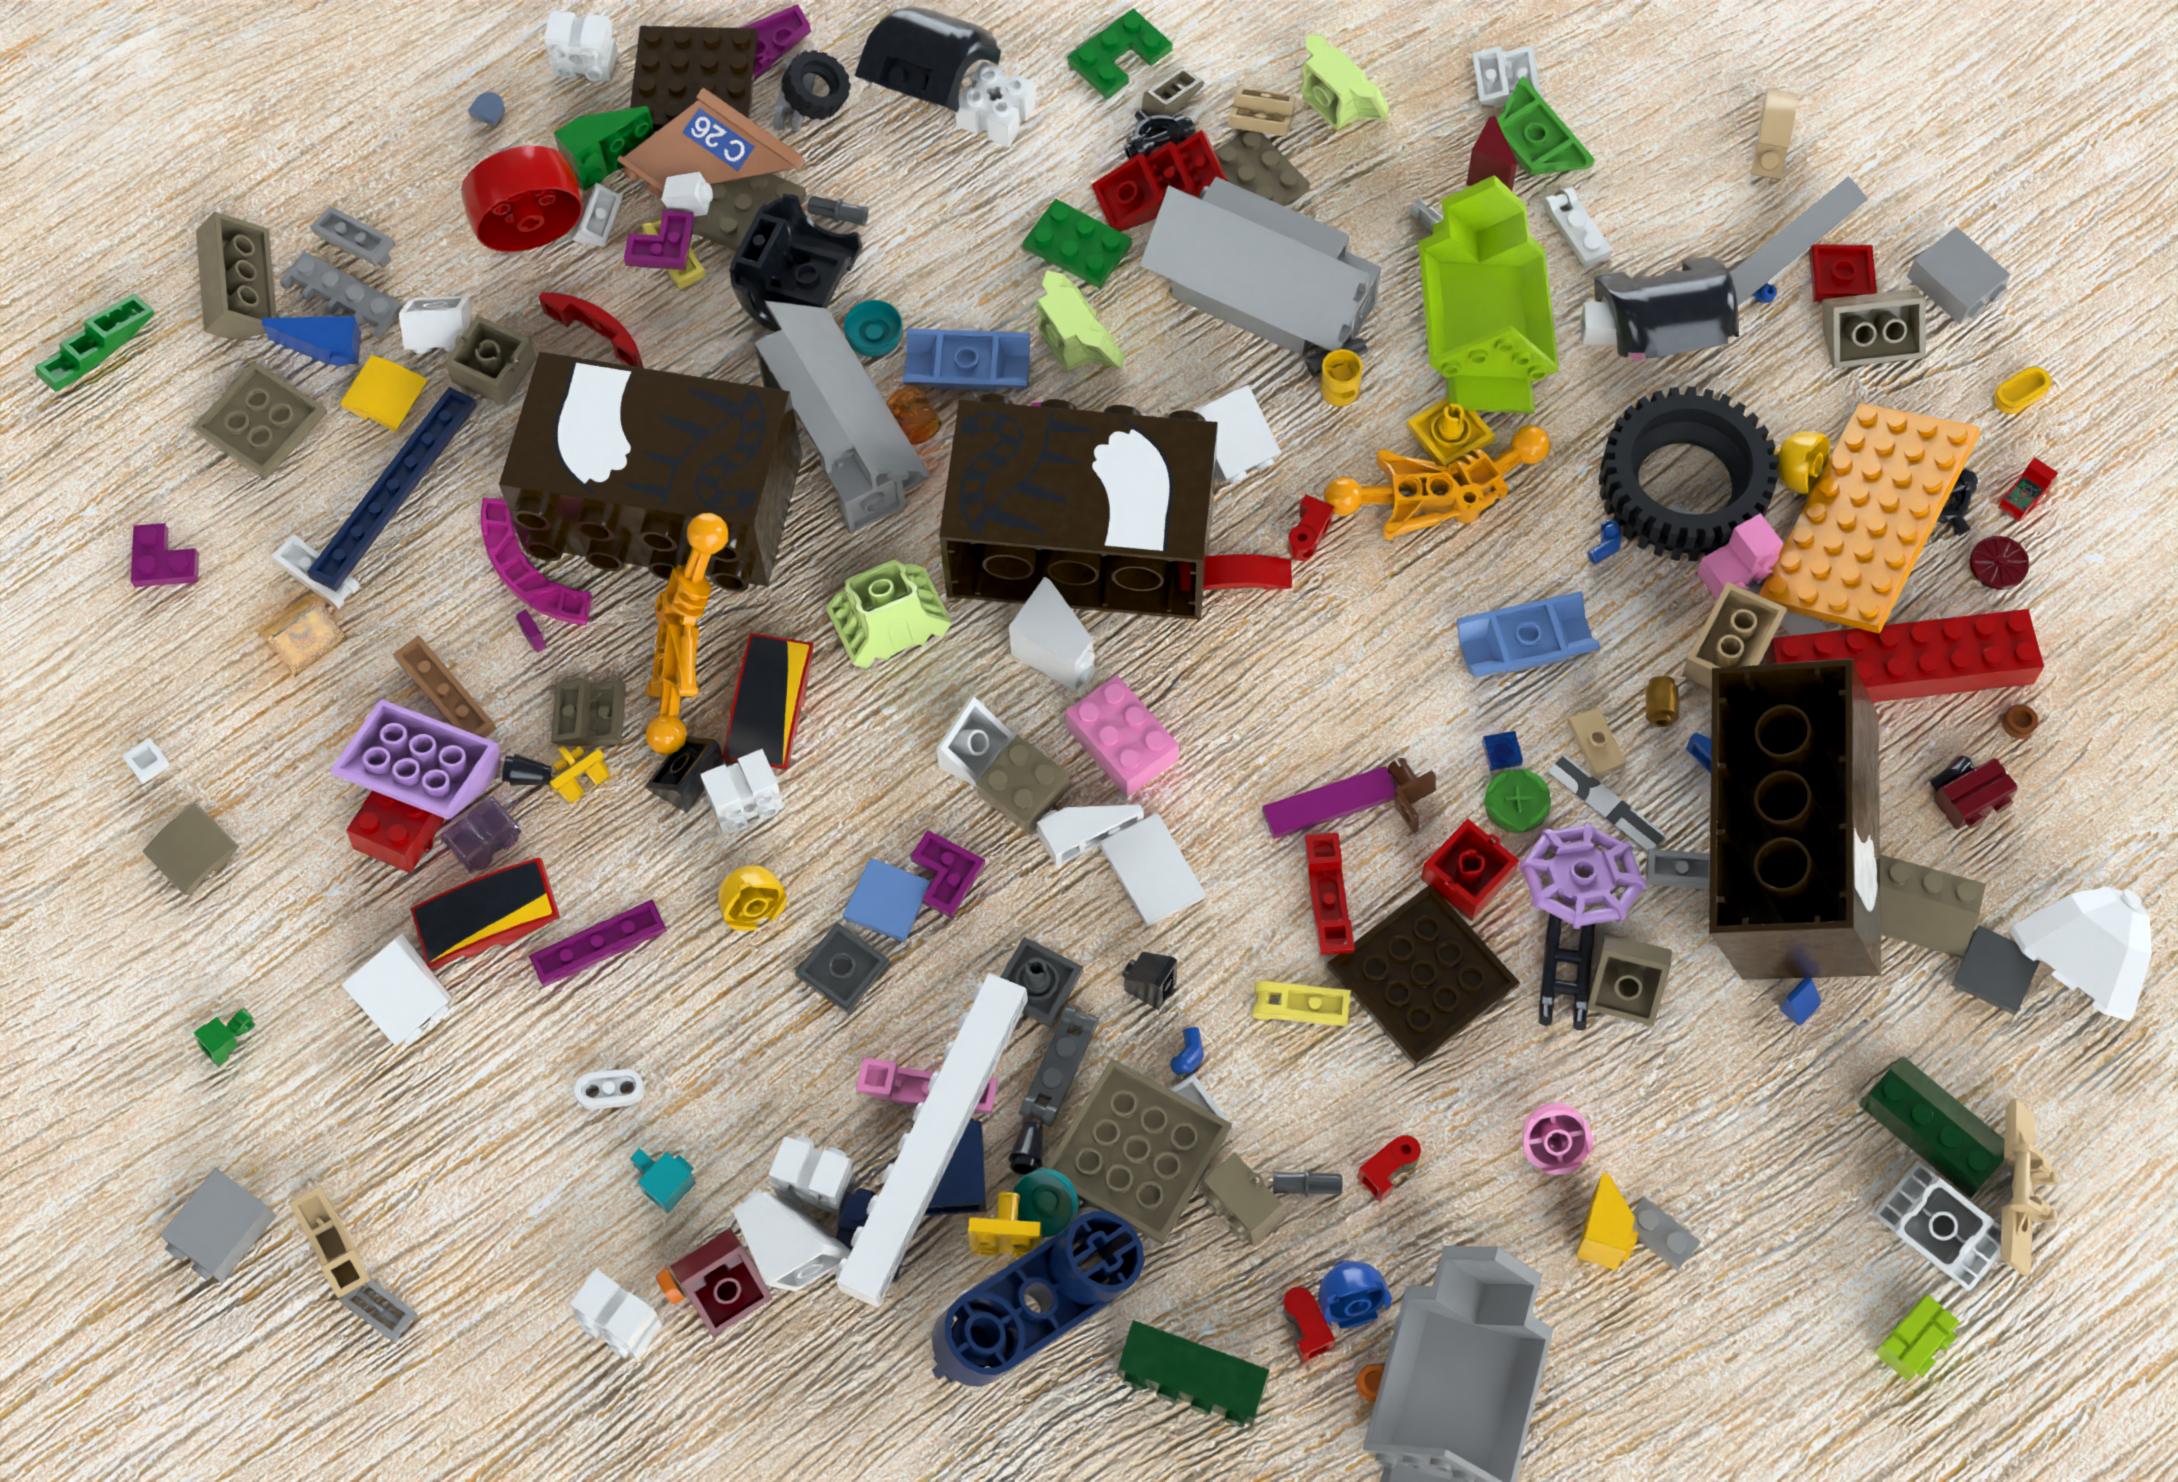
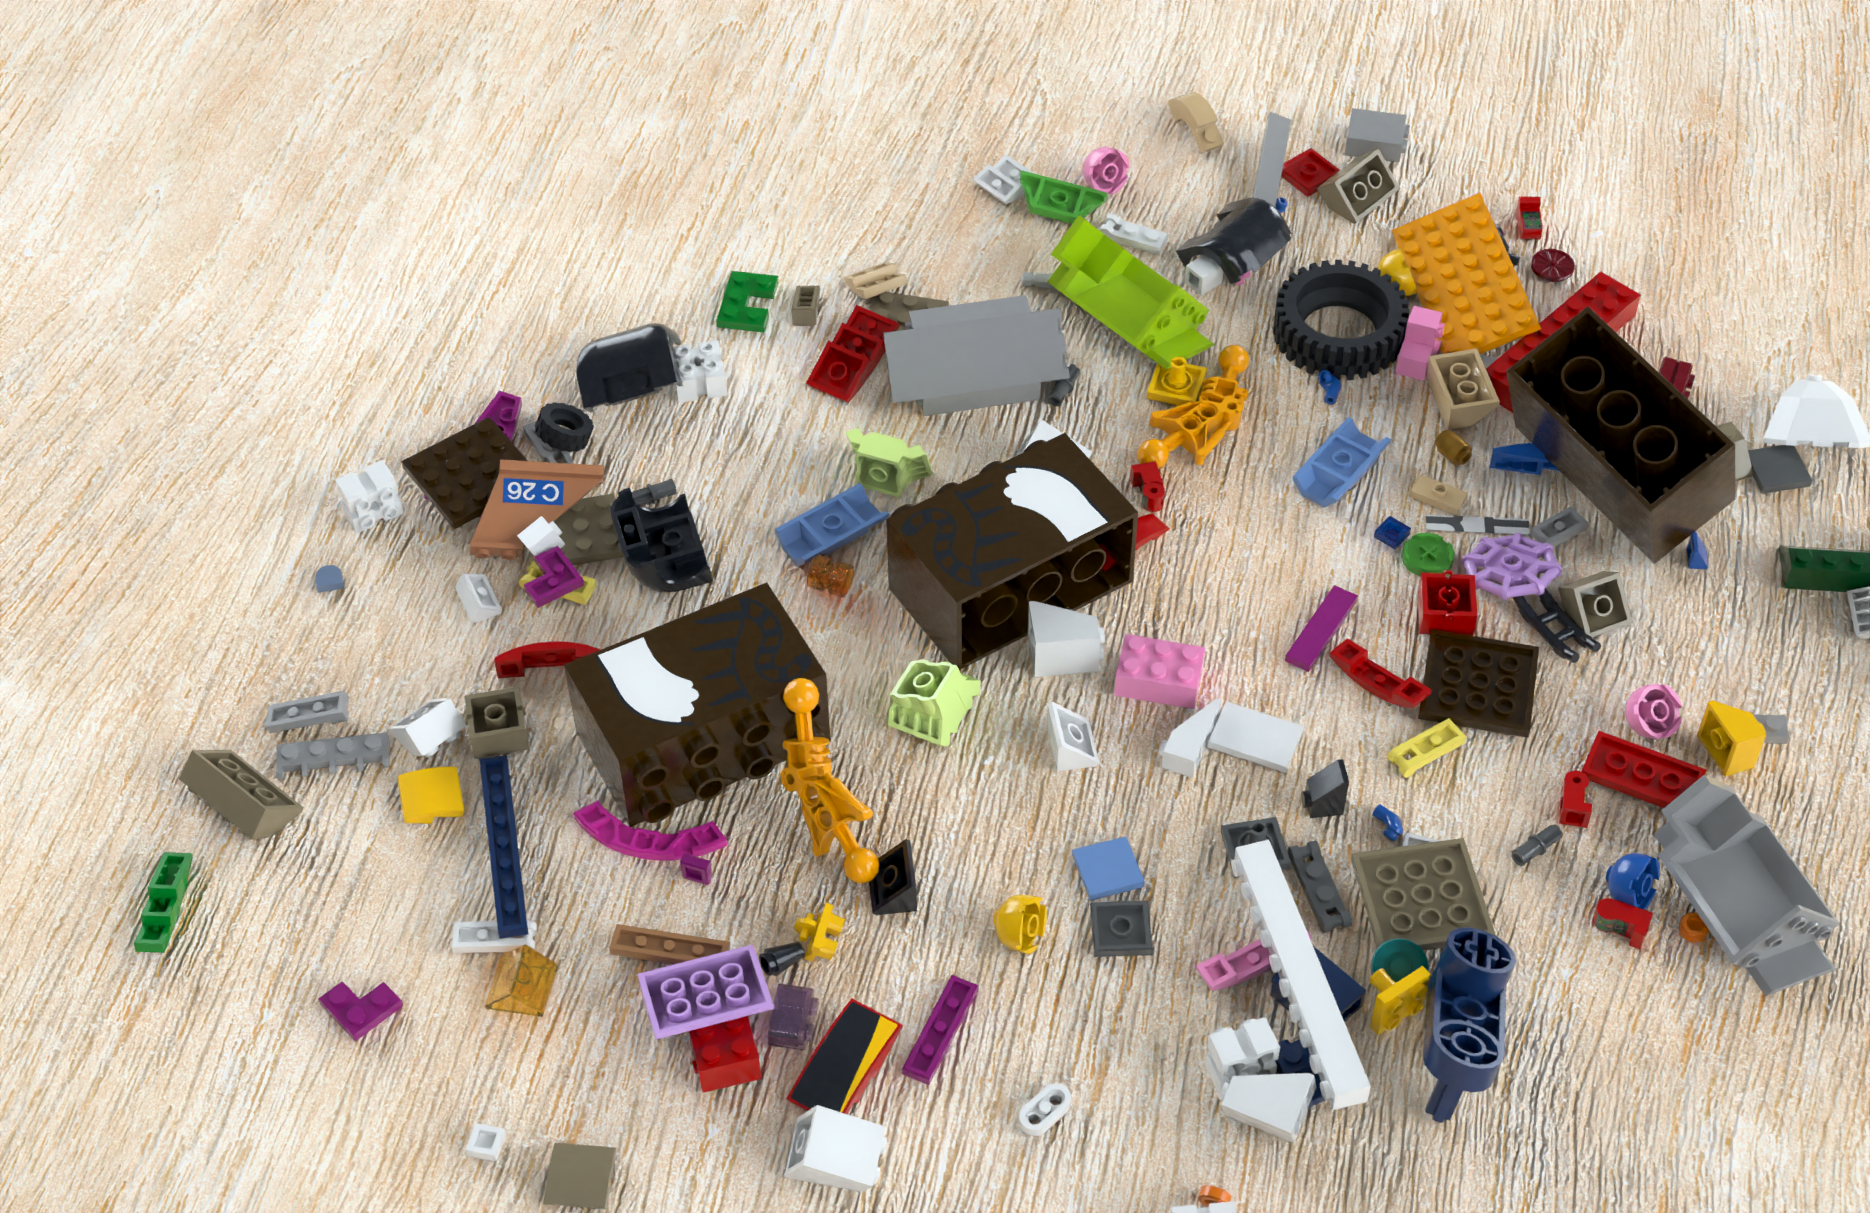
camera: 40 degrees left, 15 degrees down
(259, 420) = (351, 870): dark tan plate -> none
(326, 339) = (346, 790): blue slope -> none
(522, 198) = (429, 603): red wheel -> none
(588, 713) = (786, 894): dark tan slope -> none
(598, 140) = (446, 545): green slope -> none
(665, 1180) = (1141, 1136): teal brick -> none
(721, 1282) = (1245, 1167): dark red slope -> none
(742, 791) = (952, 862): white brick -> none
(769, 699) = (908, 801): black slope -> none
(841, 411) = (833, 610): light grey panel -> none
(873, 328) = (747, 545): teal piece -> none
(954, 869) = (1130, 817): magenta plate -> none
(1023, 784) = (1128, 738): dark tan brick -> none
(1027, 1150) = (1355, 948): black cone -> none
(1077, 243) = (829, 419): green plate -> none
(1172, 129) = (829, 321): black piece -> none
(1192, 1374) = (1593, 994): dark green slope -> none
(1248, 1205) = (1518, 873): dark tan brick -> none
(1338, 86) = (914, 236): yellowish green slope -> none
(1341, 377) = (1083, 391): yellow wheel -> none
(1410, 790) = (1364, 586): reddish brown bracket -> none
(1487, 1188) = (1638, 770): none -> red plate
(1492, 156) = (1051, 221): dark red slope -> none
(1613, 132) = (1106, 169): none -> bright pink cylinder
(2020, 721) = (1650, 337): dark orange tile -> none
(2022, 390) = (1469, 173): yellow tile -> none

